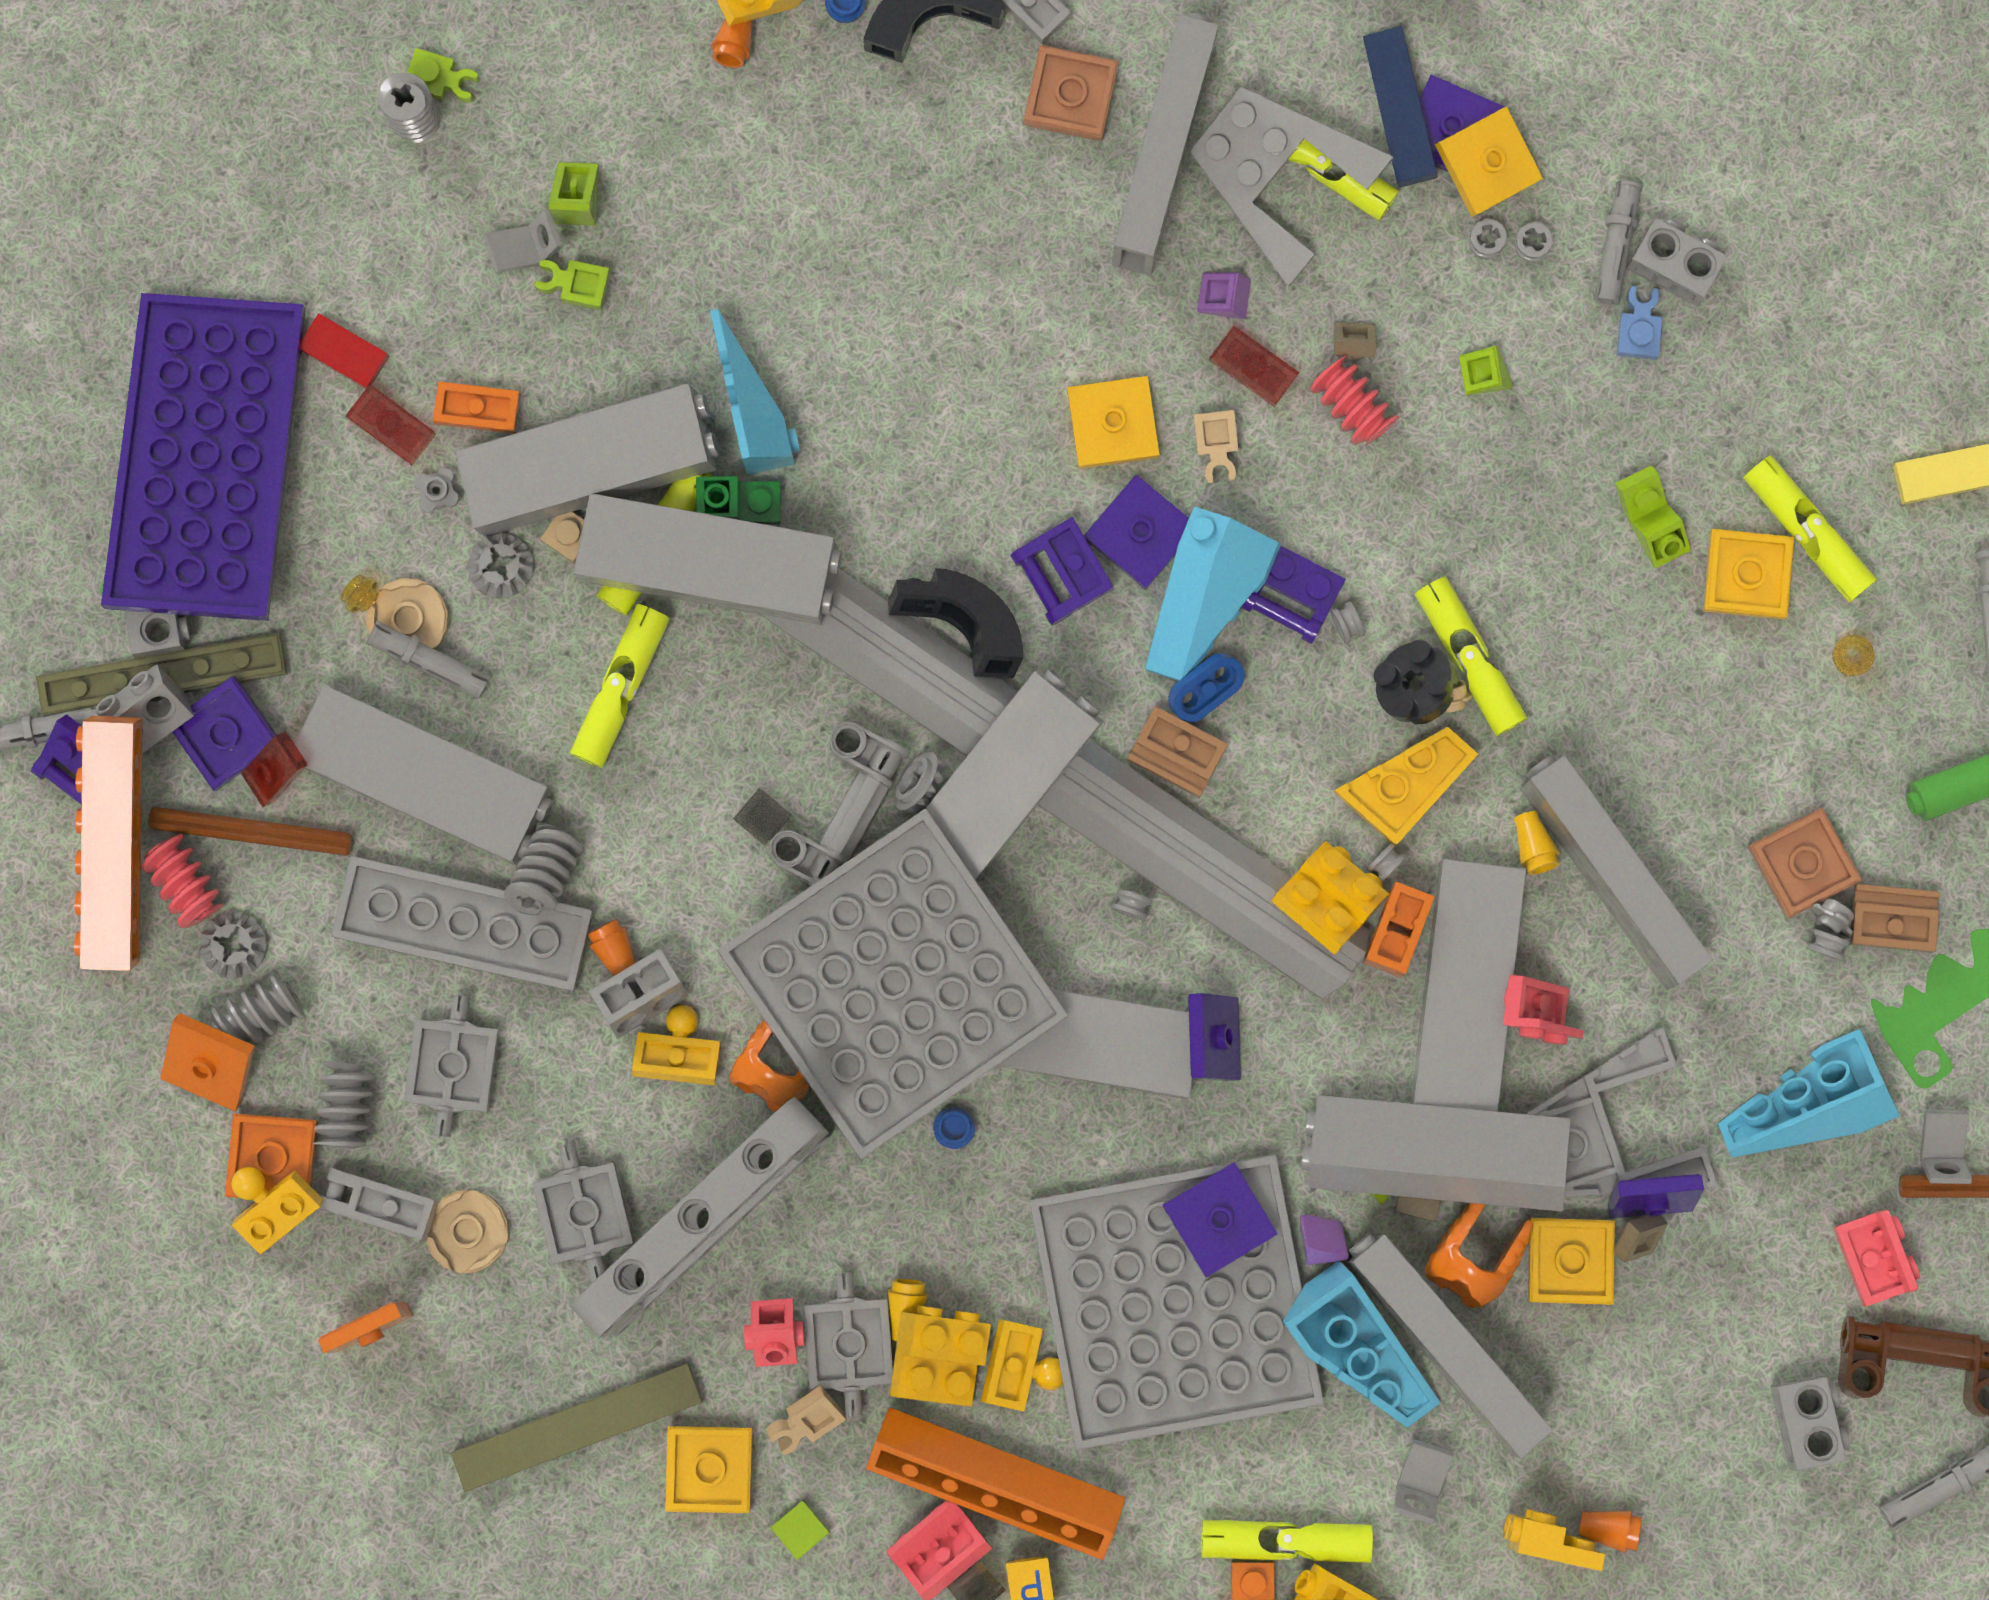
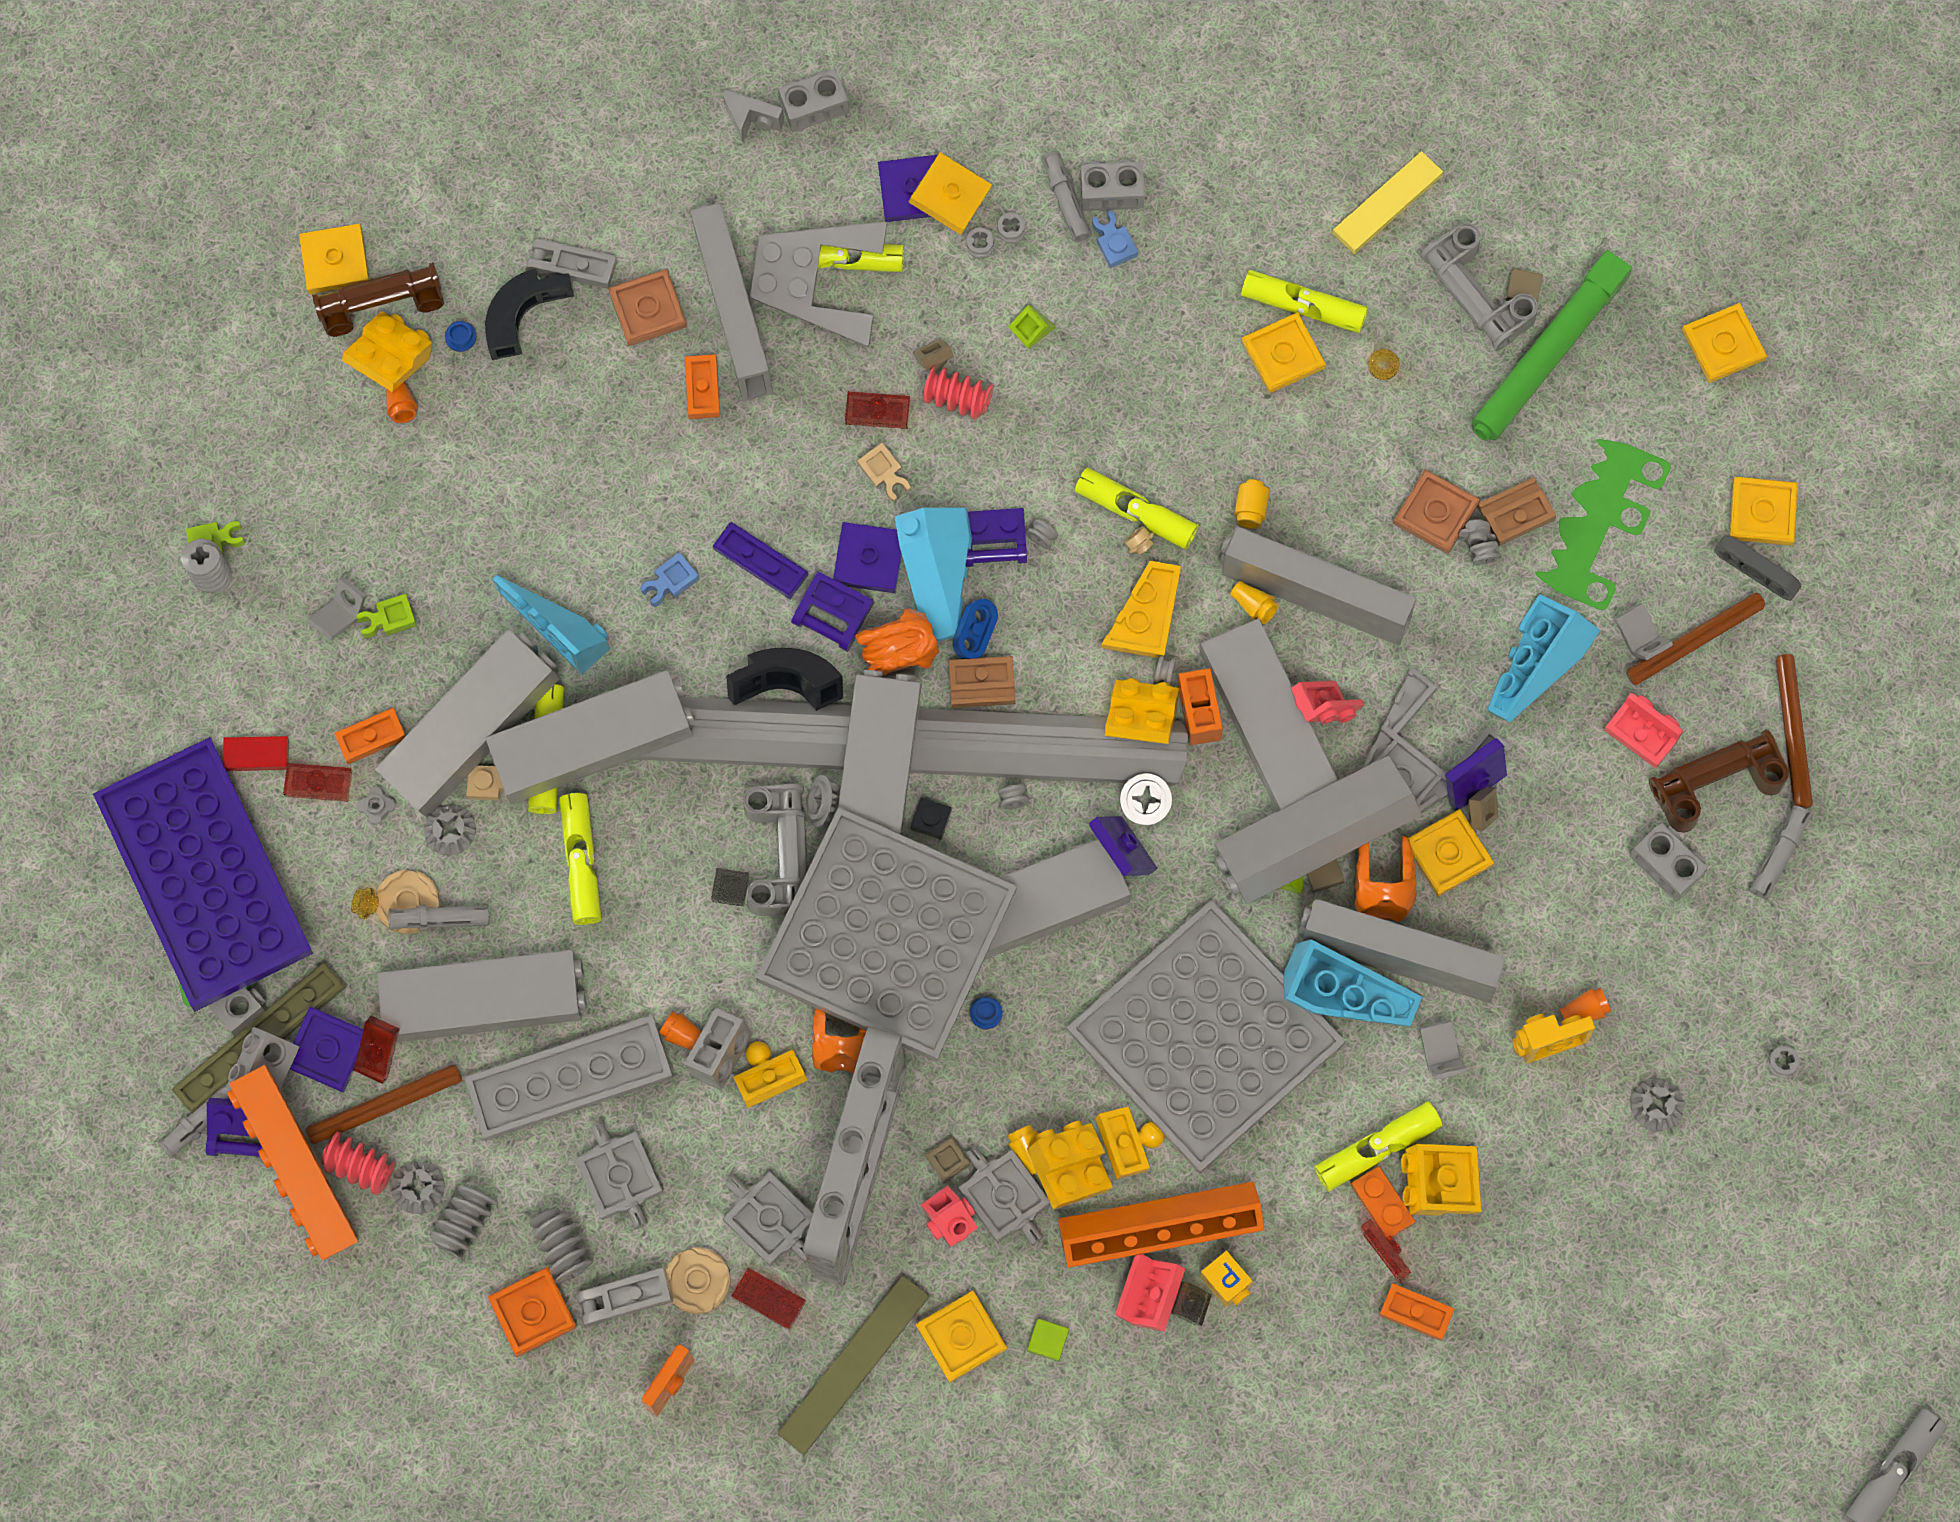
camera: 30 degrees left, 10 degrees down
(207, 1062) = (449, 1271): orange plate -> none
(274, 1210) = (555, 1344): yellow plate -> none
(529, 1300) = (768, 1299): none -> clear red plate
(543, 870) = (603, 1006): light grey piece -> none
(574, 194) = (353, 560): lime slope -> none
(738, 500) = (577, 690): green slope -> none
(808, 1417) = (1009, 1258): tan plate -> none
(813, 1264) = (947, 1159): none -> dark tan tile
(913, 426) = (673, 577): none -> medium blue plate
(1019, 462) = (760, 560): none -> dark purple tile
(1028, 872) = (931, 818): none -> black plate
(1076, 223) = (702, 386): none -> orange plate
(1108, 656) = (899, 643): none -> orange piece
(1113, 422) = (806, 499): yellow plate -> none
(1219, 1219) = (1201, 962): dark purple plate -> none
(1224, 294) = (829, 376): medium lavender slope -> none
(1278, 1014) = (1155, 810): none -> gear
(1322, 1240) = (1276, 937): medium lavender slope -> none
(1400, 107) = (870, 192): dark blue tile -> none
(1401, 667) = (1096, 539): black plate -> none
(1602, 729) = (1251, 504): none -> yellow brick
(1651, 518) = (1199, 355): lime slope -> none

